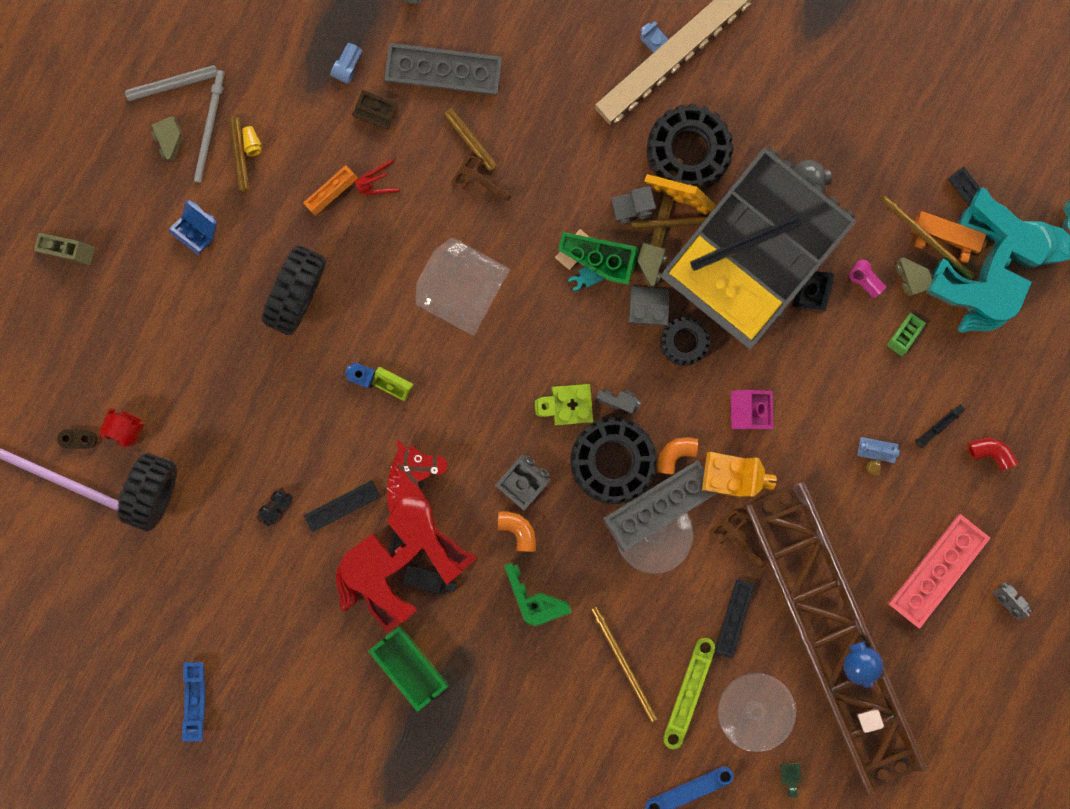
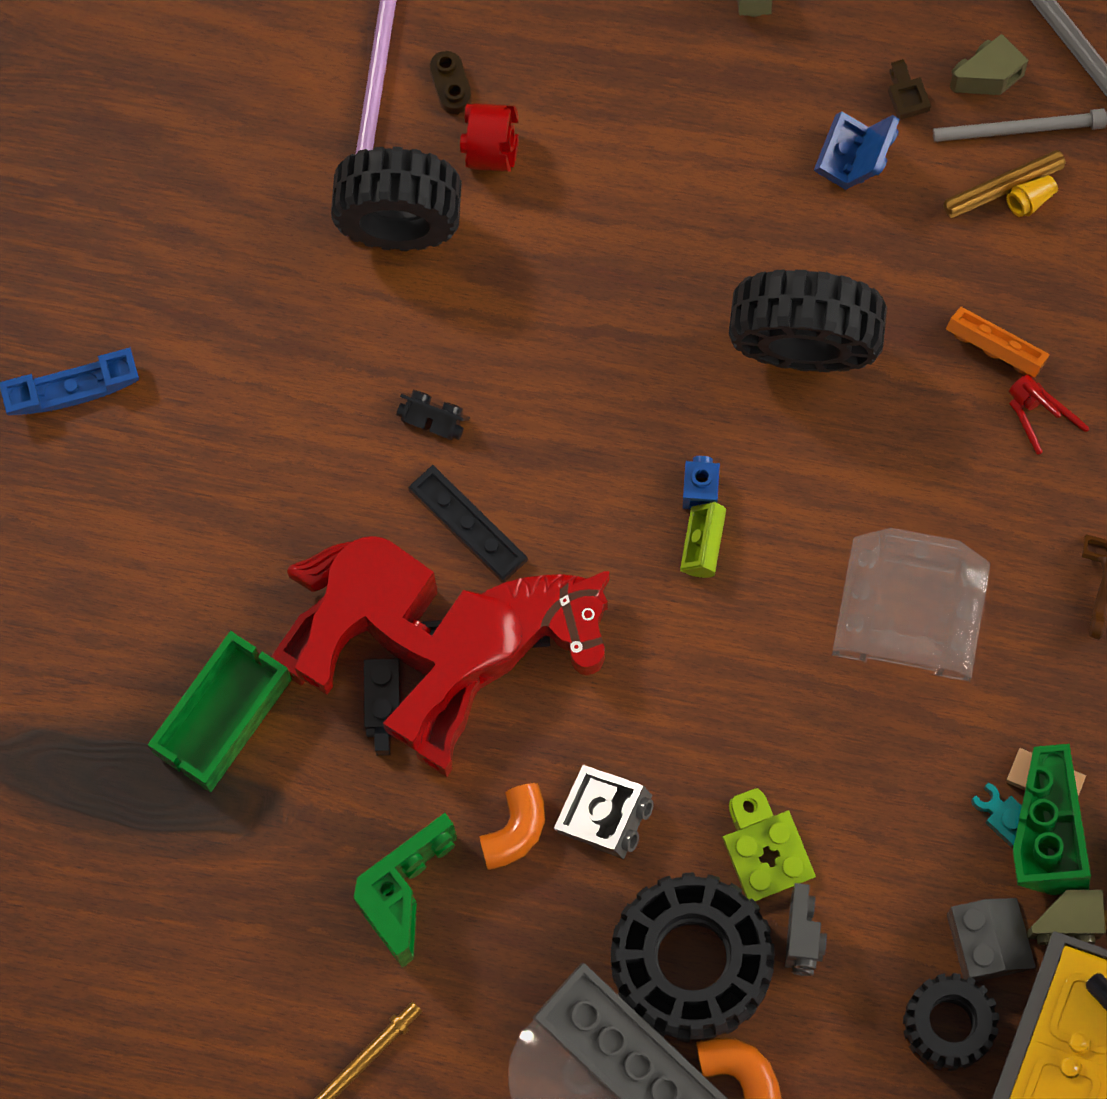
camera: 80 degrees right, 15 degrees down
(169, 188) = (906, 94): none -> dark brown plate

